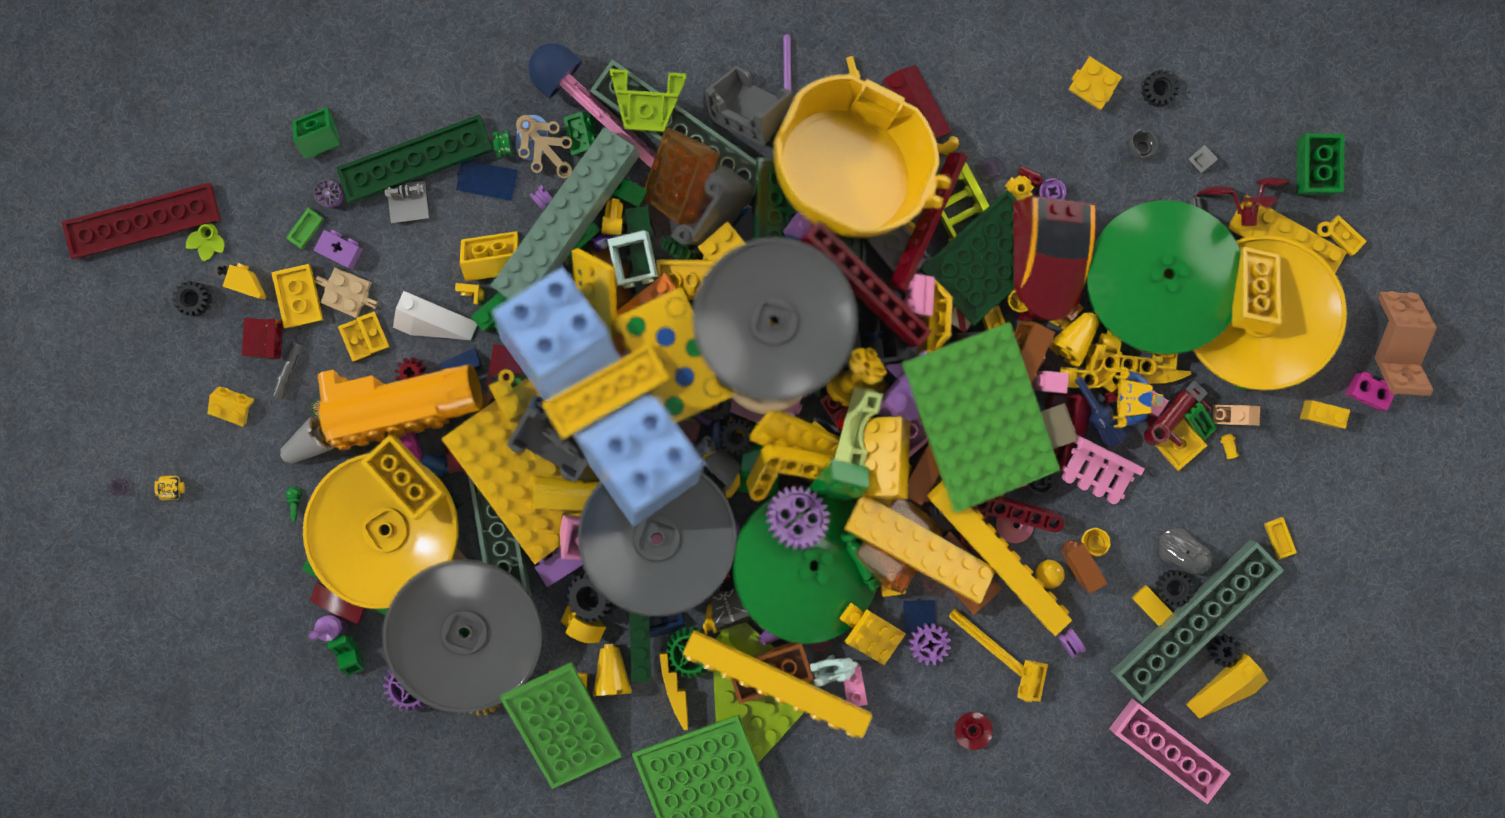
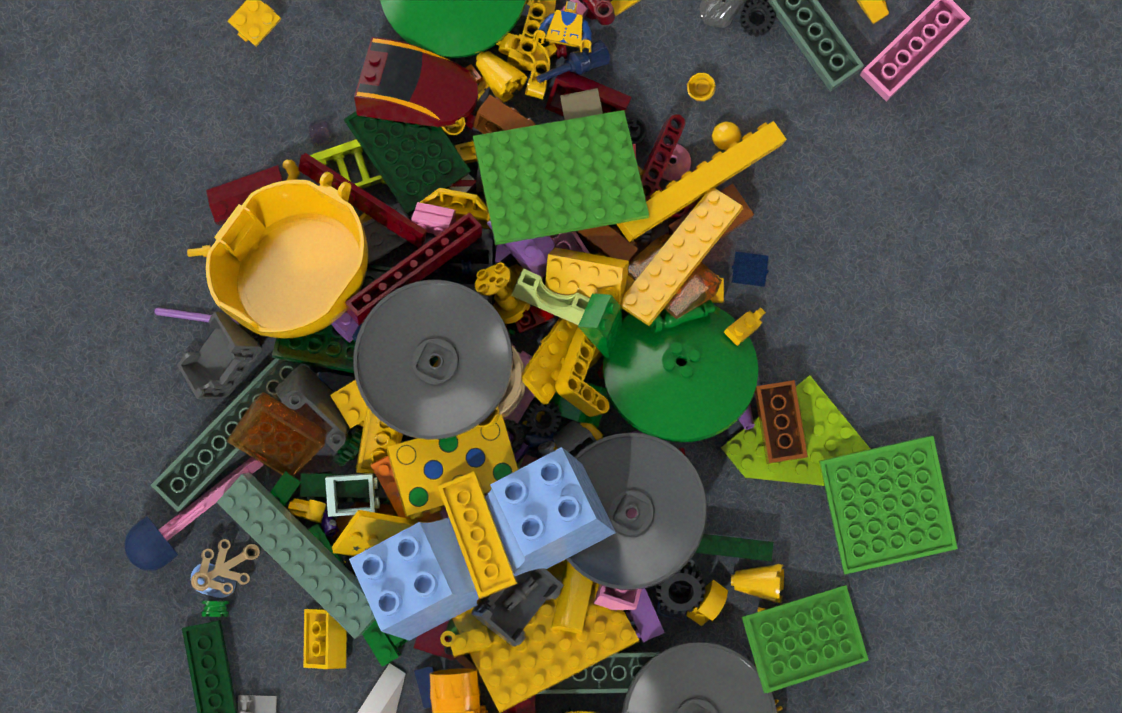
camera: 80 degrees left, 5 degrees down
(468, 289) = (355, 667): yellow bracket -> none
(486, 180) = (248, 632): clear blue piece -> none
(542, 198) = (276, 577): medium lavender wheel -> none
(581, 130) = (216, 528): green bracket -> none
(646, 109) = (206, 457): lime wing -> none
(666, 624) = (718, 519): dark blue slope -> none
(676, 695) = (792, 520): yellow slope -> none
(680, 664) = (757, 492): green gear -> none
(724, 611) = (714, 457): dark grey torso -> none
(777, 683) = (791, 416): yellow brick -> none
(808, 532) = (647, 360): medium lavender gear -> none
(821, 647) = (764, 370): dark red tile -> none
(832, 669) = (787, 360): light aqua animal -> none
(855, 688) = (807, 343): bright pink brick -> none
(875, 637) = (762, 314): yellow plate -> none
(922, 644) = (785, 261): medium lavender gear -> none
(977, 739) = (875, 226): dark red dish -> none
(986, 641) = (784, 206): yellow axle -> none
(1021, 183) = (340, 104): yellow brick -> none
(1032, 175) = (334, 93): dark red arm -> none
(1032, 681) = (828, 168): yellow bracket -> none
(1050, 382) = (537, 106): bright pink brick -> none
(1052, 189) = (350, 76): medium lavender wheel -> none
(1073, 641) = (796, 124): medium lavender wheel -> none
(1082, 566) = (721, 102): dark orange window -> none
(1093, 466) = (629, 80): bright pink fence -> none
(1152, 605) = (771, 42): yellow tile -> none

